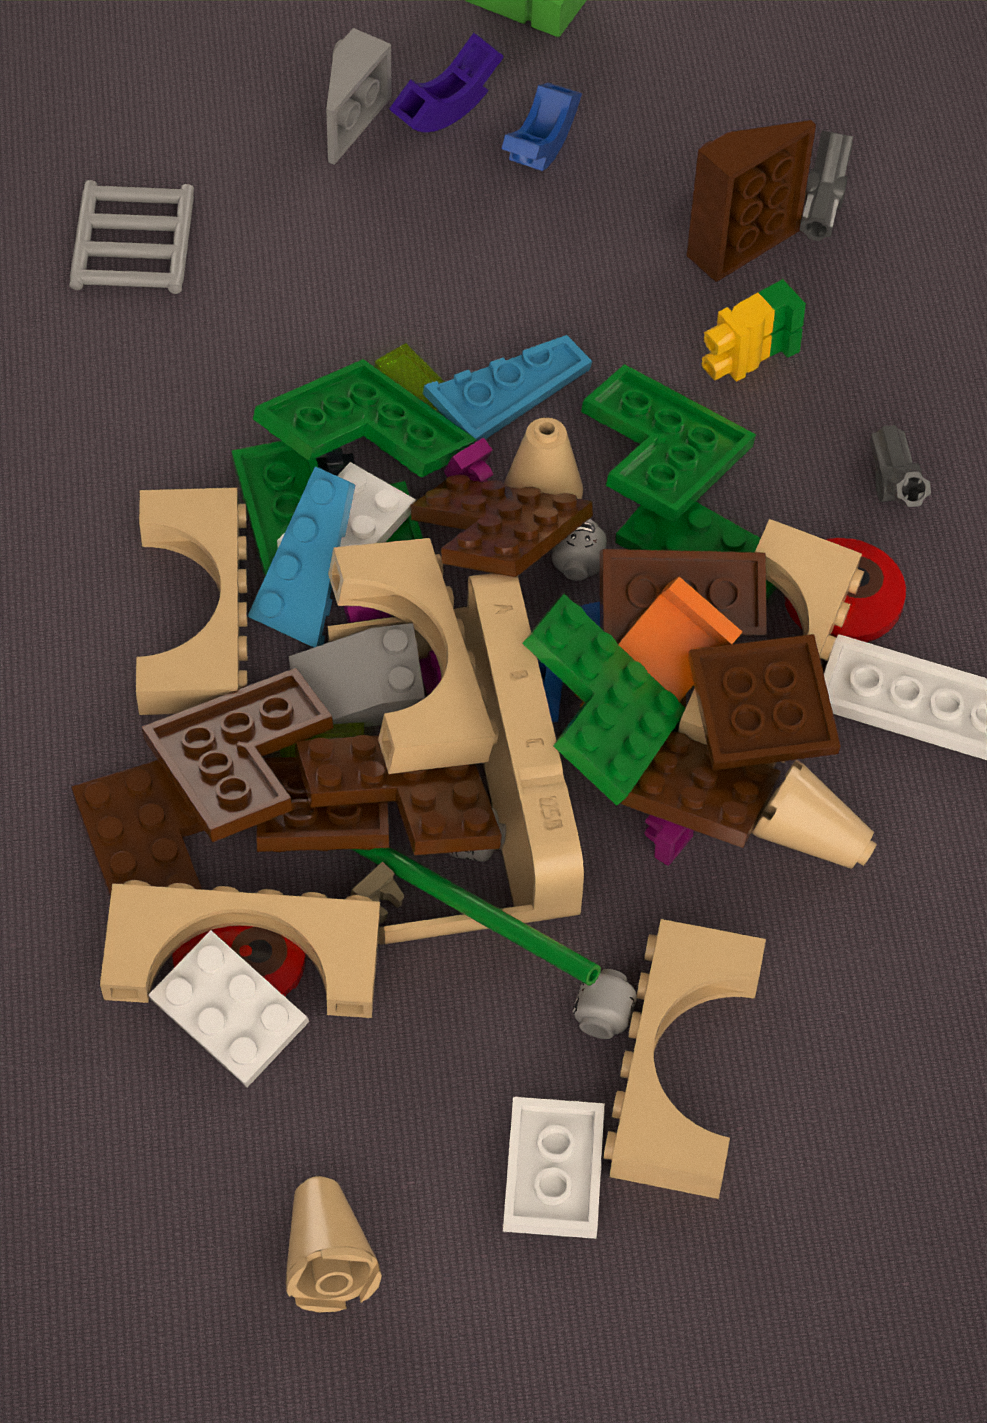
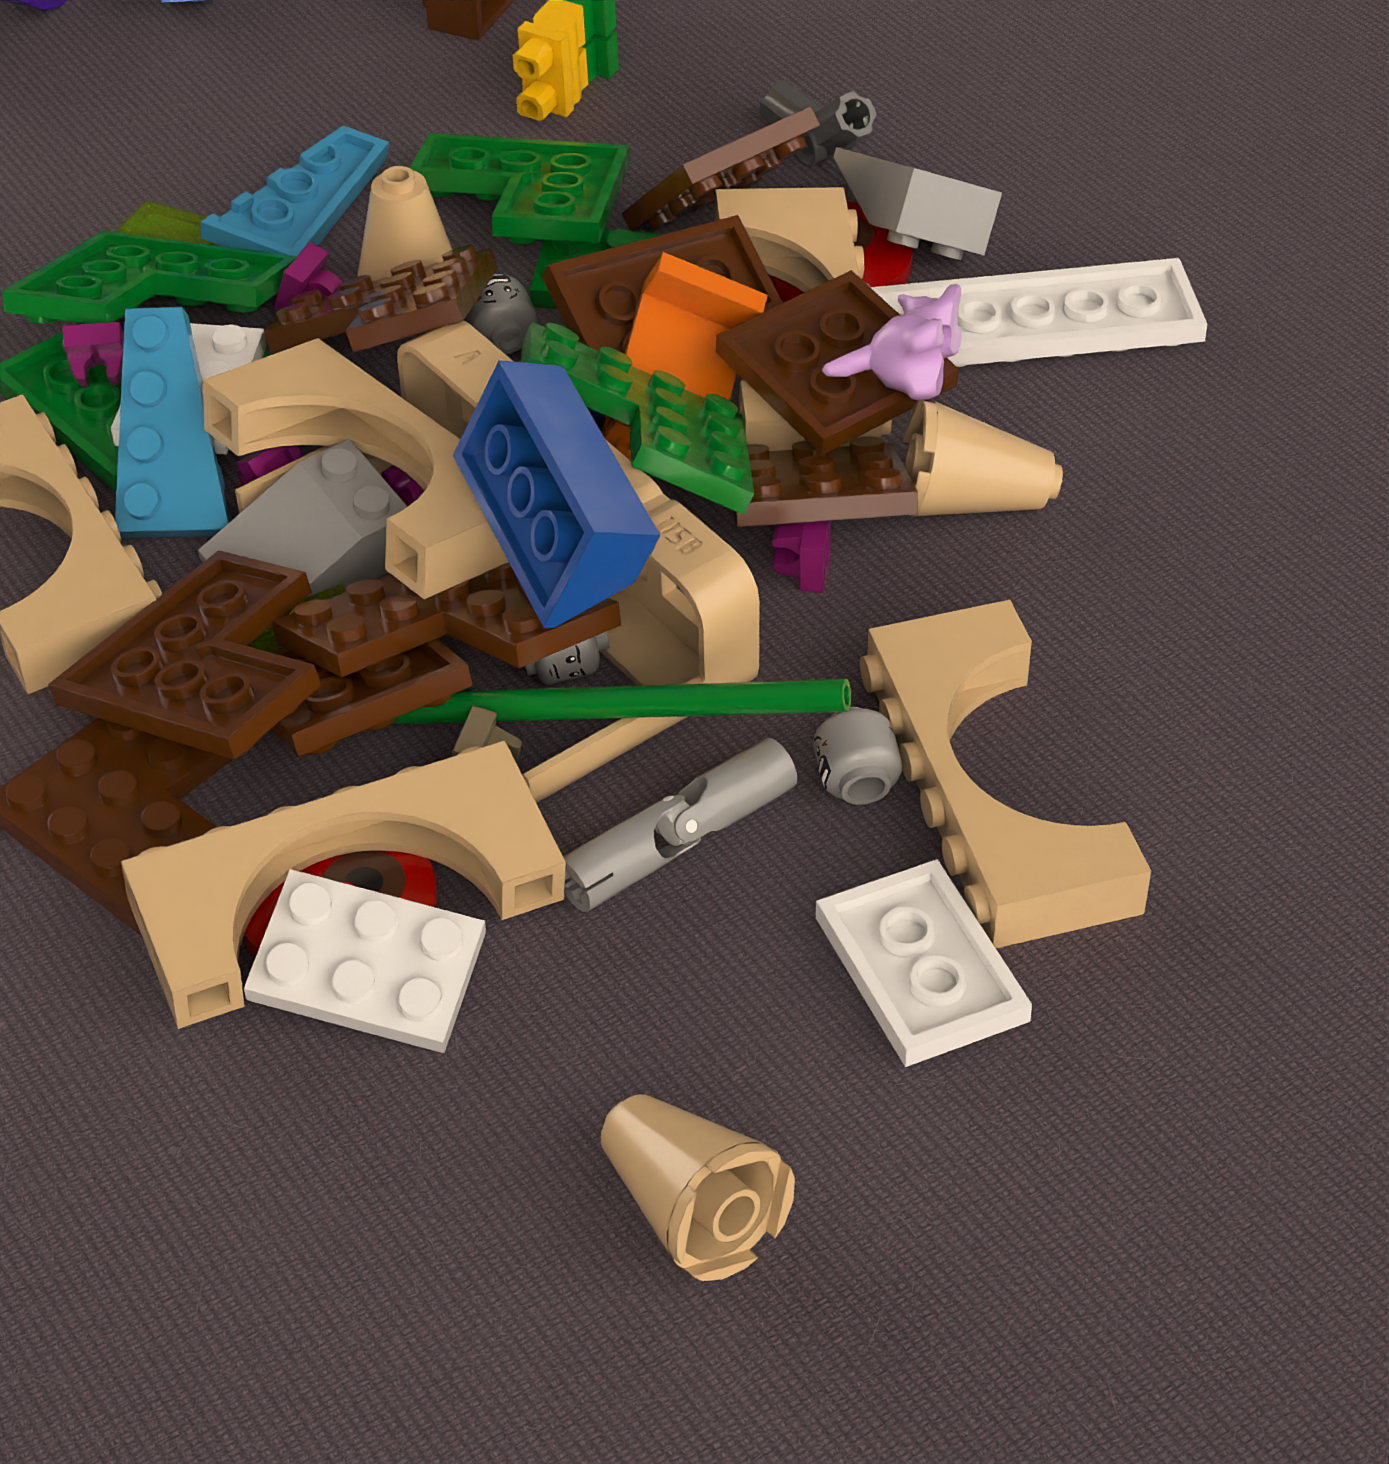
camera: 25 degrees left, 10 degrees down
(292, 467) = (92, 346): none -> magenta tile
(484, 996) = (705, 805): none -> light grey piece
(489, 746) = (553, 491): none -> blue slope
(793, 497) = (727, 167): none -> reddish brown plate
(805, 722) = (910, 347): none -> lavender animal
(921, 576) = (920, 204): none -> light grey slope

